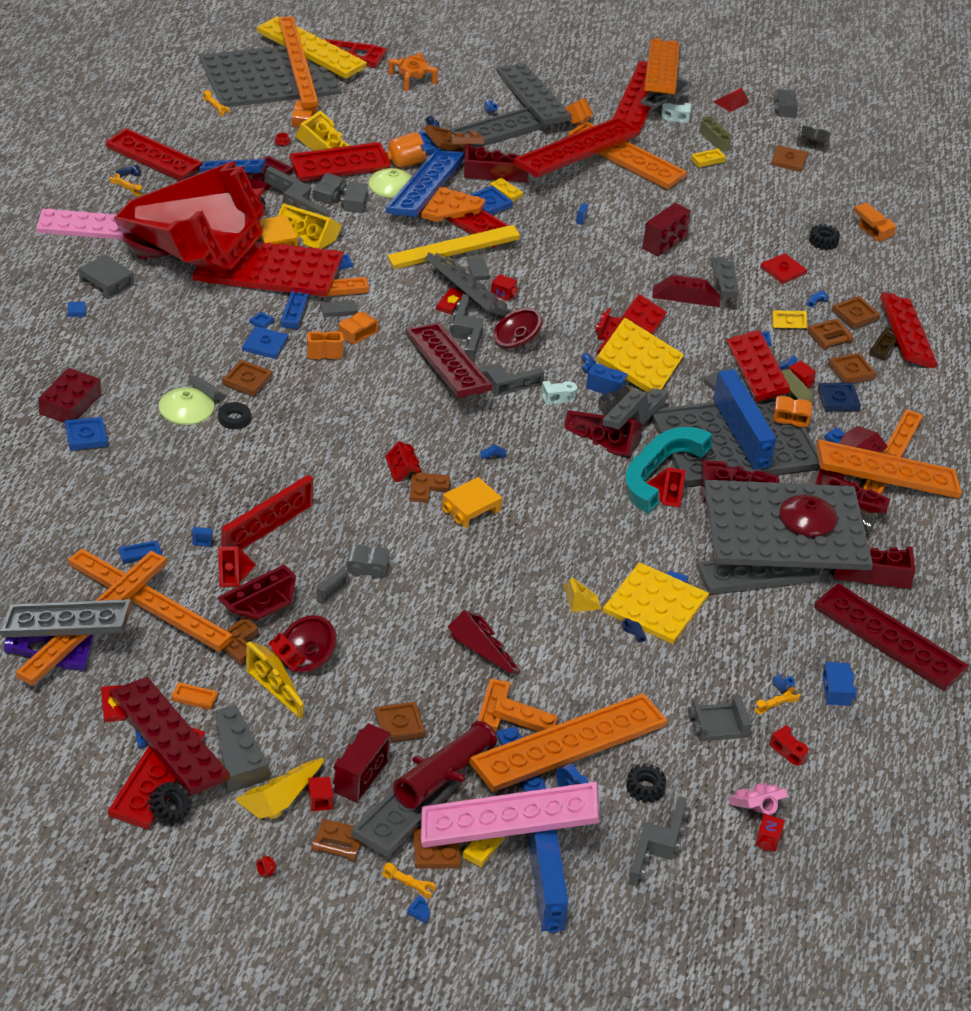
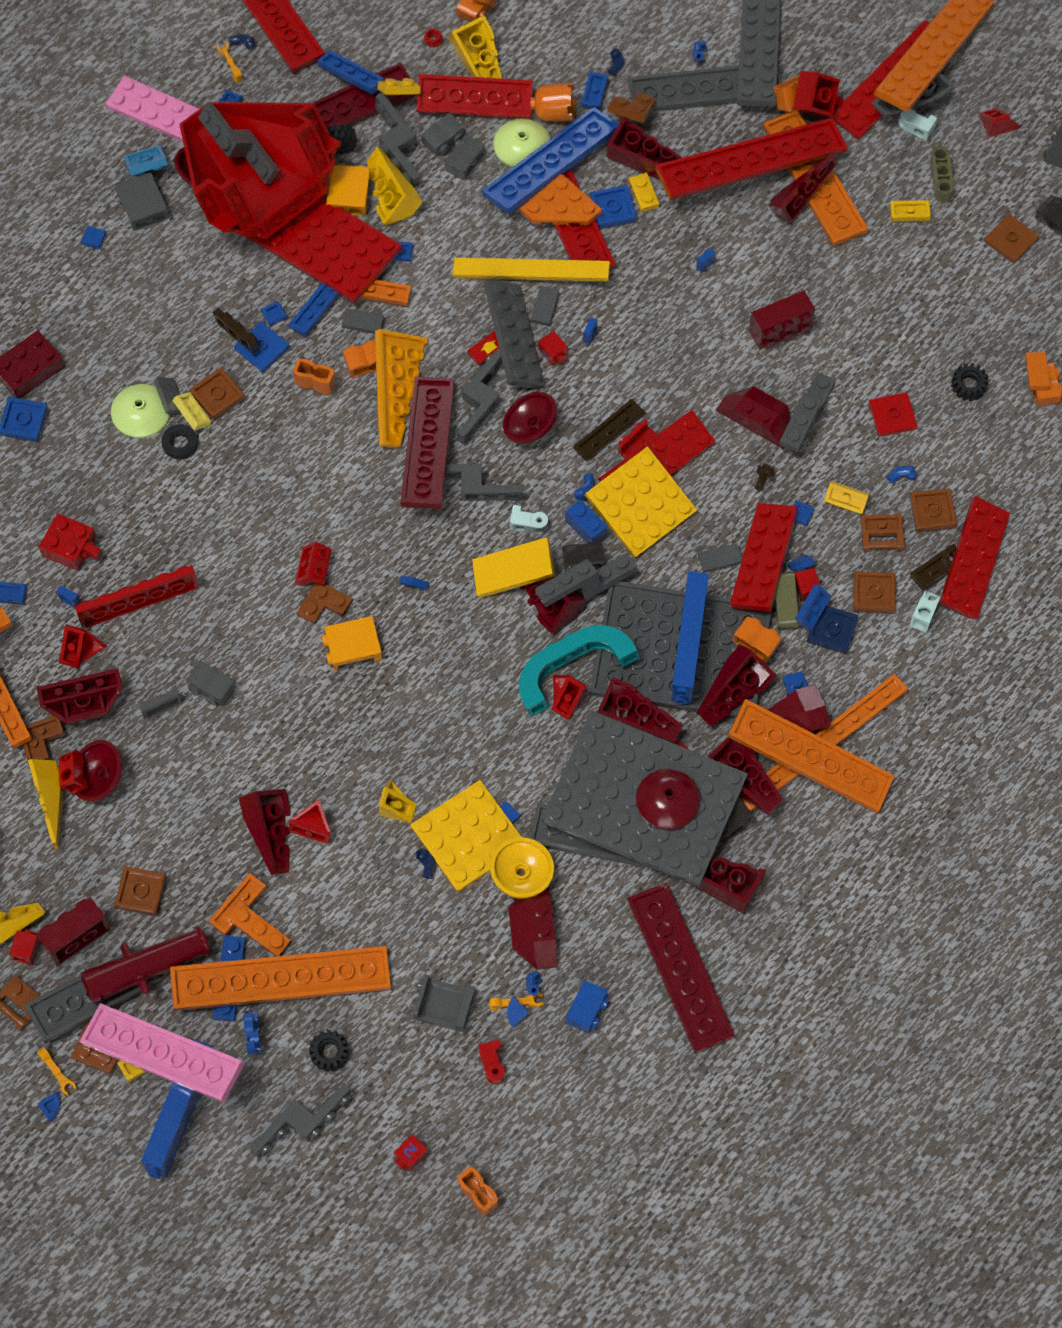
camera: 30 degrees right, 25 degrees up
(93, 252) = (145, 160): none -> dark azure plate
(160, 210) = (238, 143): none -> dark grey bracket
(181, 500) = (69, 542): none -> red hinge
(233, 393) = (192, 411): none -> light yellow plate
(240, 332) = (236, 330): none -> dark brown plate
(284, 161) = (393, 87): none -> yellow plate
(390, 323) = (396, 368): none -> light orange wing
(442, 138) = (608, 86): dark orange plate -> none
(523, 626) = (311, 823): none -> red slope
(525, 271) = (590, 330): none -> blue tile
(571, 418) = (513, 567): none -> yellow tile
(580, 326) = (609, 430): none -> dark brown tile
(598, 103) = (817, 94): none -> red hinge
(623, 161) = (796, 195): none -> dark red wedge
(718, 320) = (765, 472): none -> dark brown plate
(719, 604) = (524, 856): none -> yellow dish
(755, 797) = (420, 1109): bright pink plate -> none
(758, 644) = (534, 930): none -> dark red wedge
(783, 704) = (515, 1011): none -> blue tile
(798, 439) = (738, 680): none -> dark red wedge
(818, 379) = (813, 607): none -> blue plate
(848, 838) = (482, 1195): none -> orange brick
(898, 369) = (924, 611): none -> light aqua leg

